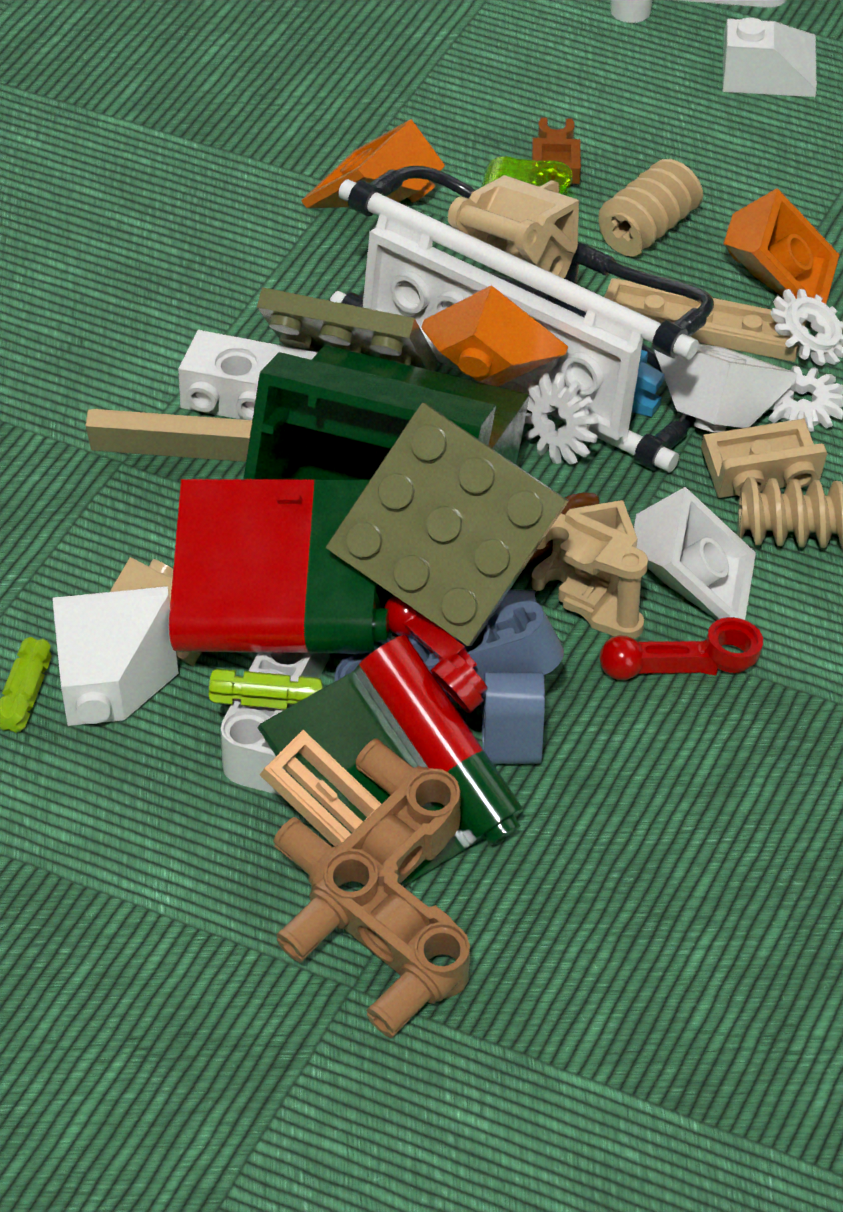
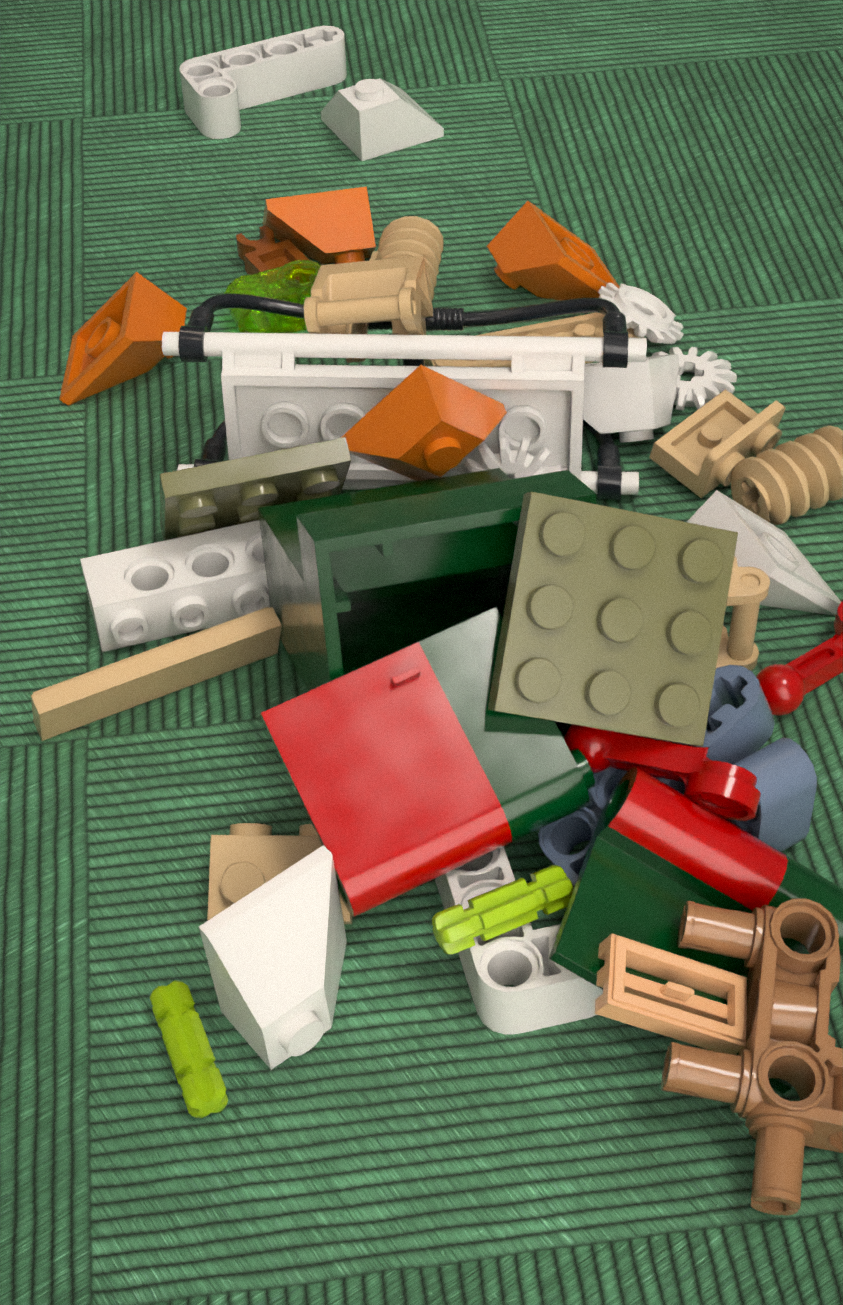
camera: 30 degrees left, 0 degrees up
(619, 140) = (325, 224): none -> orange slope

